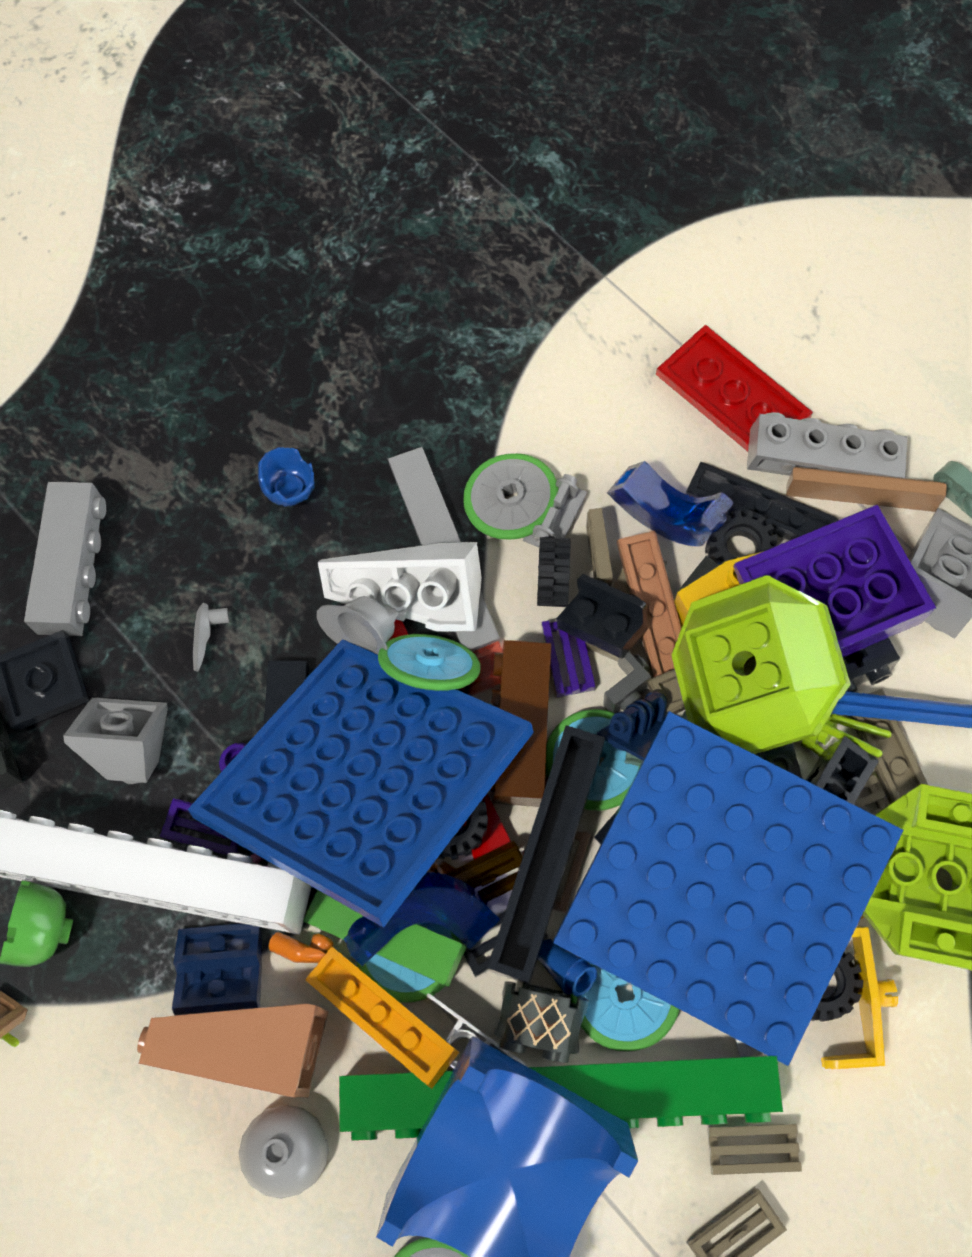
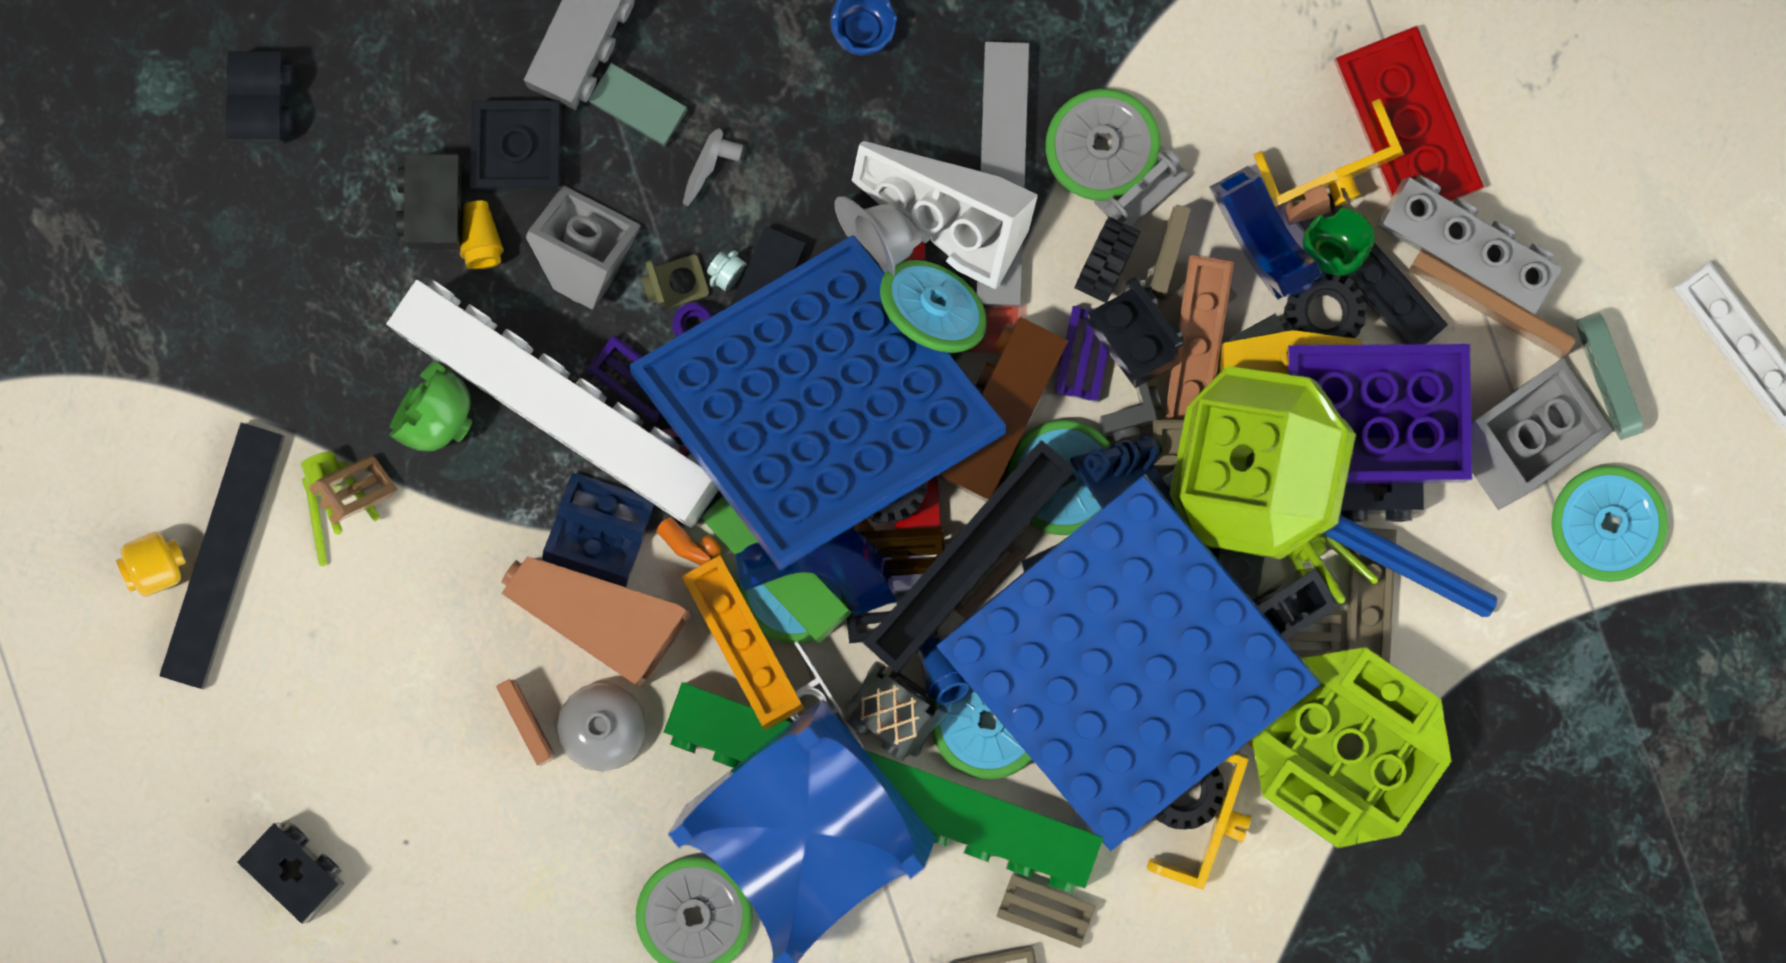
camera: 25 degrees right, 15 degrees up
(32, 765) = (479, 237): none -> yellow cone
(131, 612) = (637, 105): none -> sand green tile
(196, 740) = (658, 282): none -> olive bracket
(211, 1177) = (526, 722): none -> nougat tile
(249, 708) = (726, 270): none -> light aqua plate
(693, 472) = (1316, 203): none -> nougat tile
(705, 443) = (1340, 178): none -> yellow piece
(732, 477) = (1339, 241): none -> green hair

